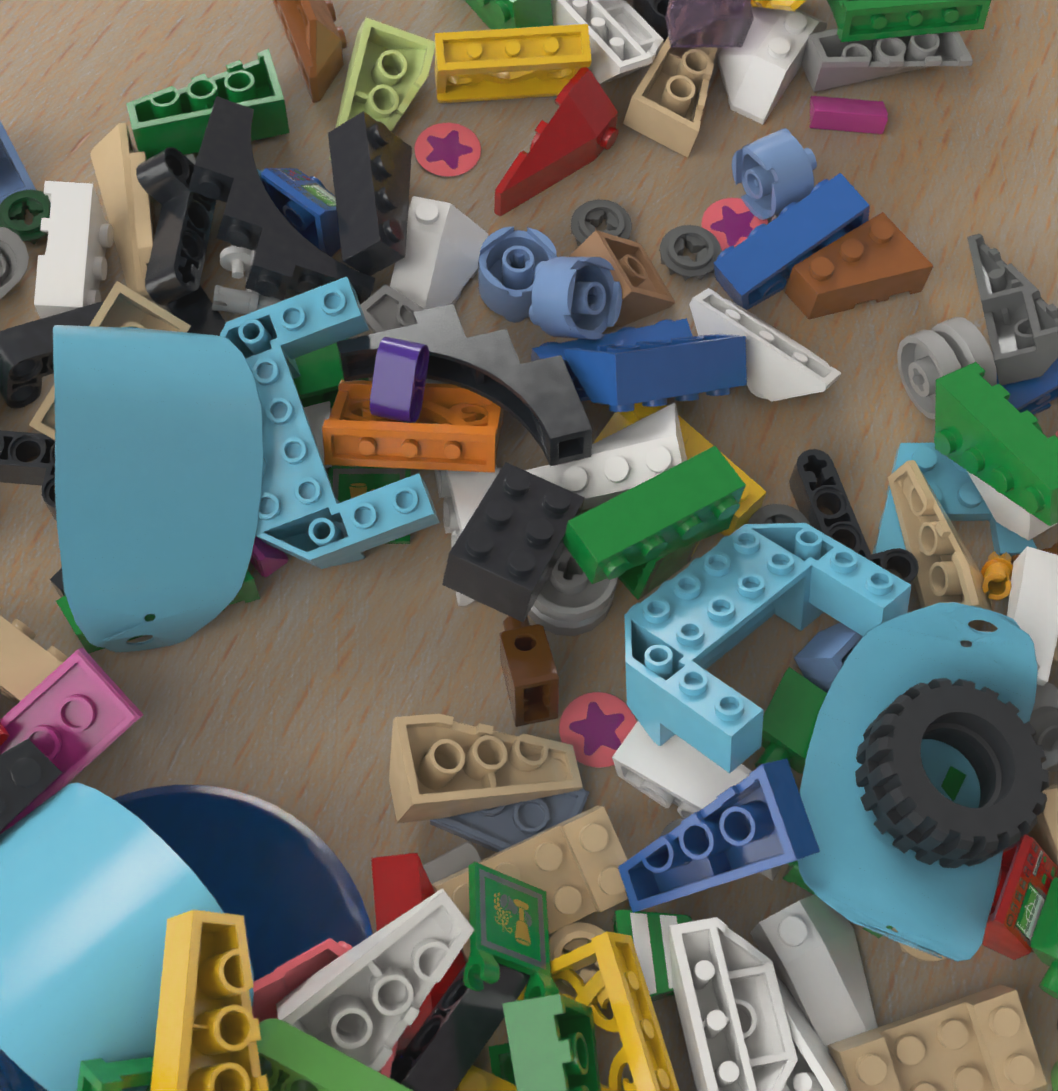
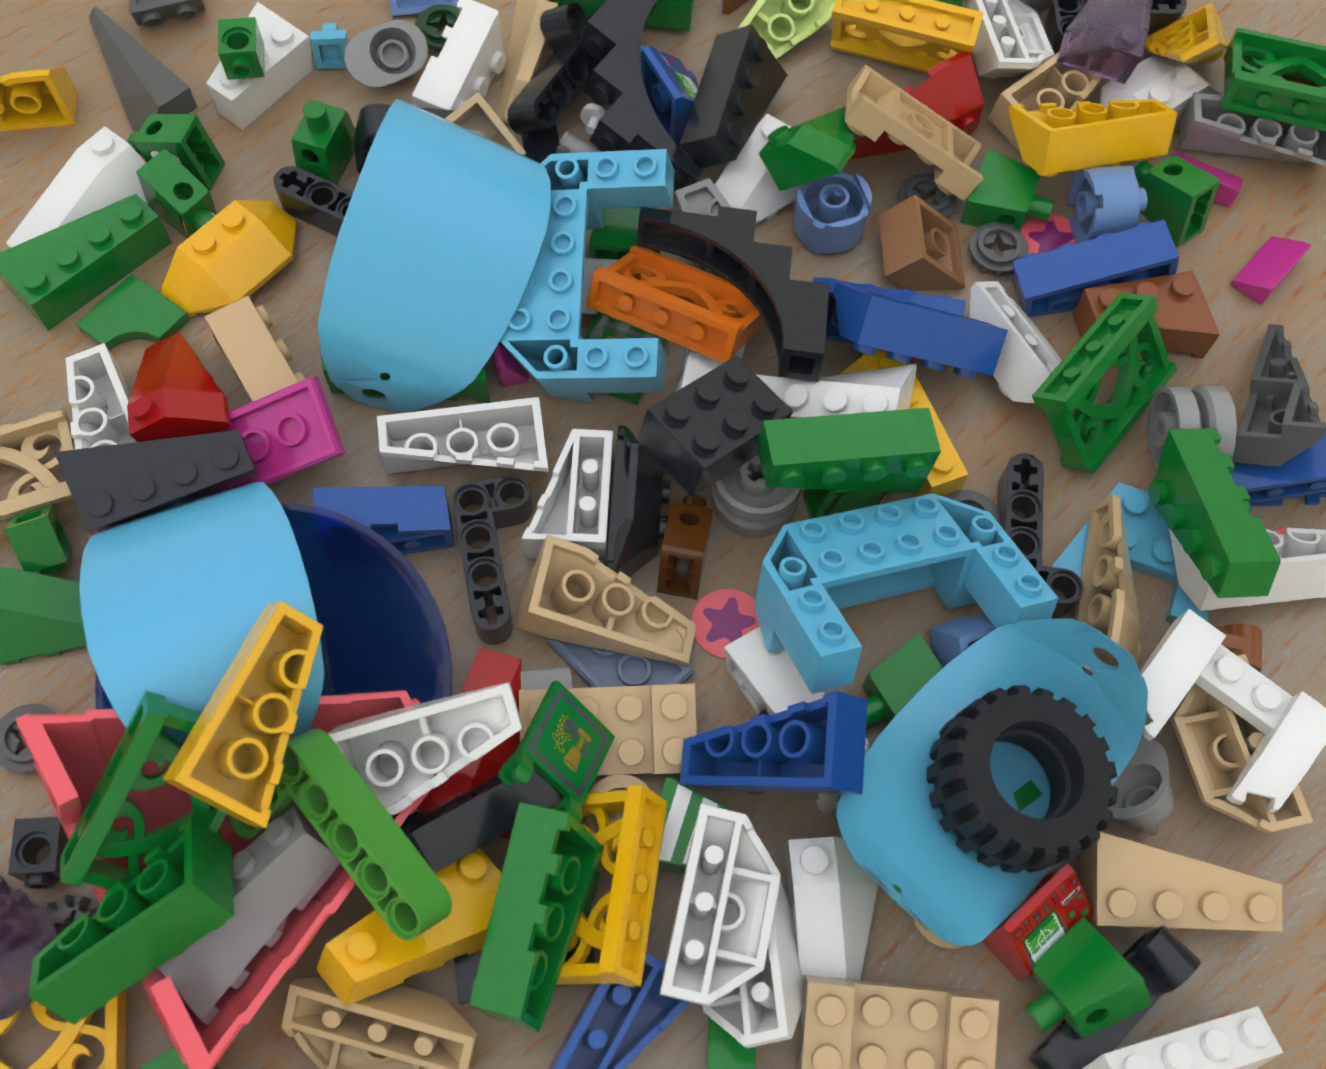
camera: 25 degrees right, 0 degrees up
(228, 756) = (406, 516): none -> blue wedge
(273, 640) = (478, 434): none -> white wedge
(338, 764) = (487, 560): none -> black beam
(399, 380) = (679, 256): beam -> none
(401, 664) = (577, 496): none -> white wedge
(447, 149) = (819, 89): coral sticker -> none
(458, 647) = (635, 506): none -> black wedge
(479, 213) = (809, 149): none -> green wedge
(530, 154) = (881, 106): none -> tan piece
(575, 297) = (870, 245): medium blue brick -> none
(673, 196) = (1005, 194): none -> green torso
(734, 110) = (1091, 134): none -> yellow wedge
(837, 139) = (1177, 194): none -> green torso
(849, 307) = (1113, 340): none -> green fence
(944, 181) = (1269, 267): none -> dark pink slope
(997, 575) = (1152, 630): light orange axle -> none

